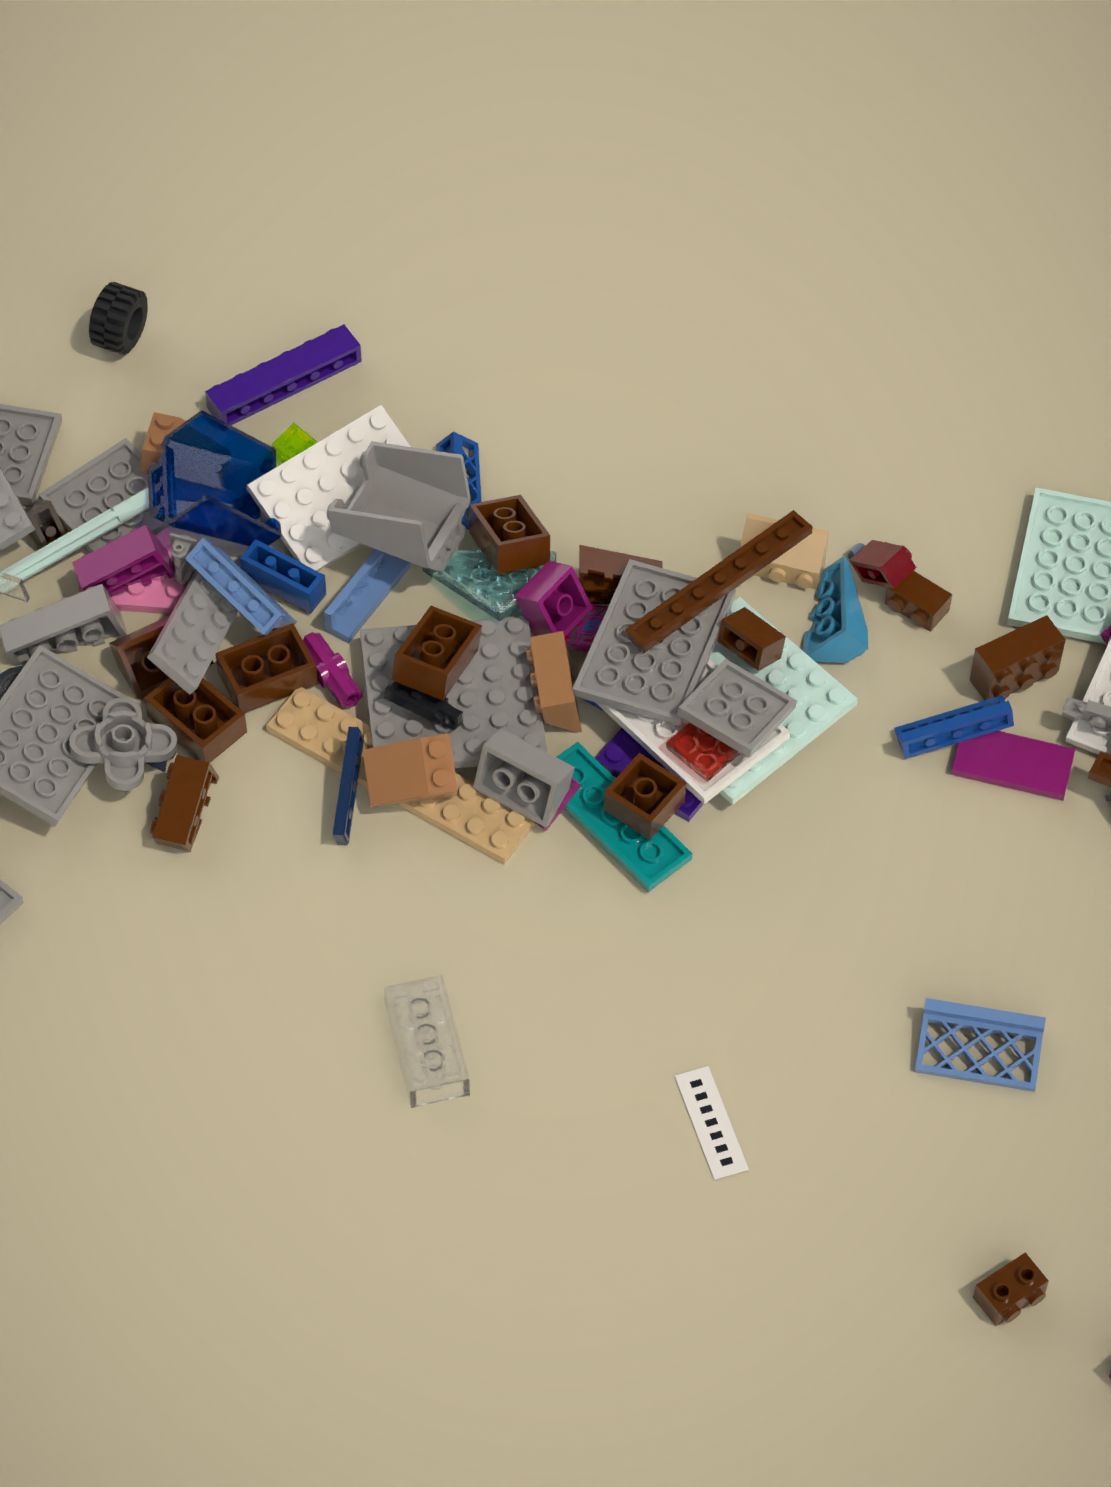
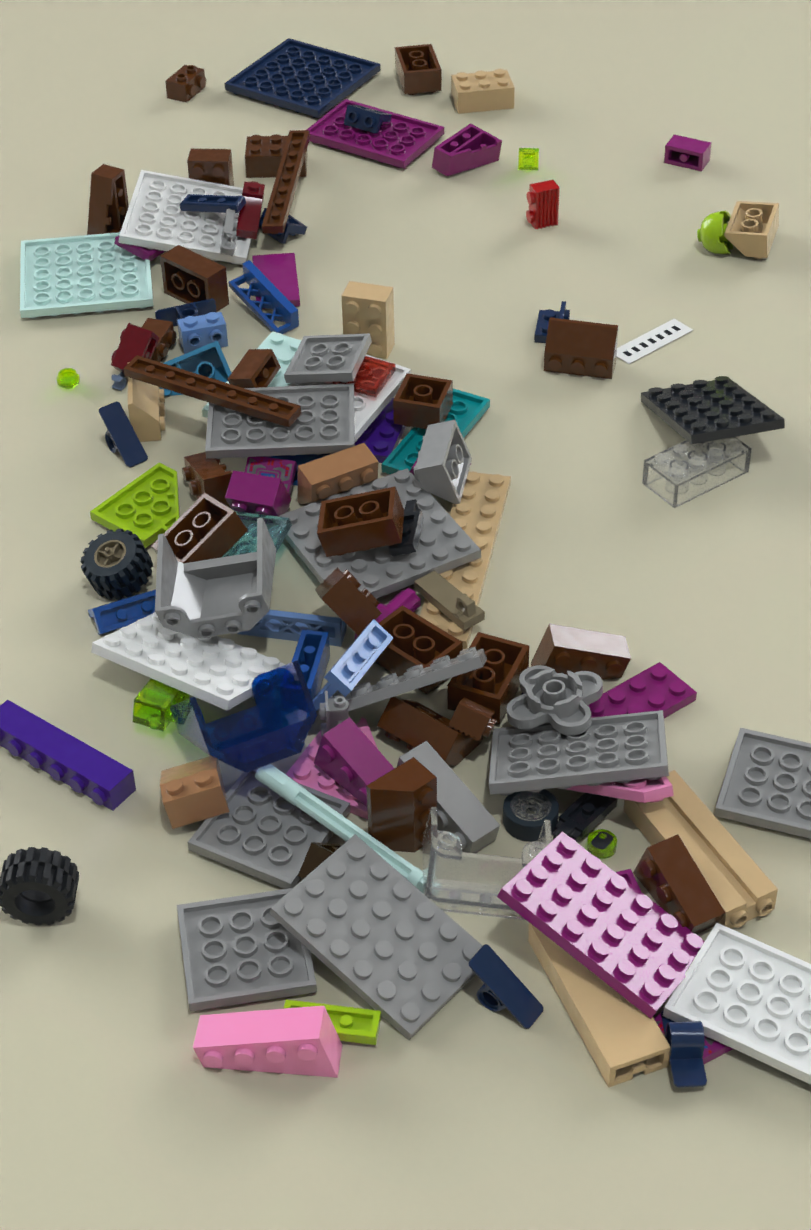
camera: 110 degrees left, 15 degrees down
(47, 571) = (401, 806): none -> reddish brown slope
(110, 838) = (645, 692): none -> magenta plate
(135, 671) = (473, 719): none -> reddish brown brick
(320, 721) = (449, 600): none -> dark tan hinge
(342, 620) = (345, 598): none -> reddish brown brick
(348, 786) = (504, 563): dark blue tile -> none
(410, 771) = (474, 518): medium nougat slope -> none
(502, 1086) = (711, 410): none -> black plate
(512, 465) = (116, 564): none -> black wheel
(612, 519) = (143, 506): none -> lime wing
(694, 1011) = (581, 348): none -> reddish brown slope
(732, 523) = (121, 435): none -> dark blue piece
(784, 1018) = (543, 321): none -> dark blue bracket
(831, 793) = (370, 310): none -> tan brick
(883, 508) = (68, 378): none -> clear neon green plate
(892, 1338) = (753, 227): none -> tan slope
(898, 1290) = (713, 232): none -> lime cylinder
(911, 647) = (201, 331): none -> medium blue brick
(957, 650) = (191, 309): none -> dark blue piece
(978, 1020) = (499, 249): medium blue fence -> none
(1011, 1289) = (679, 202): reddish brown brick -> none
(1049, 1100) = (543, 204): none -> red brick

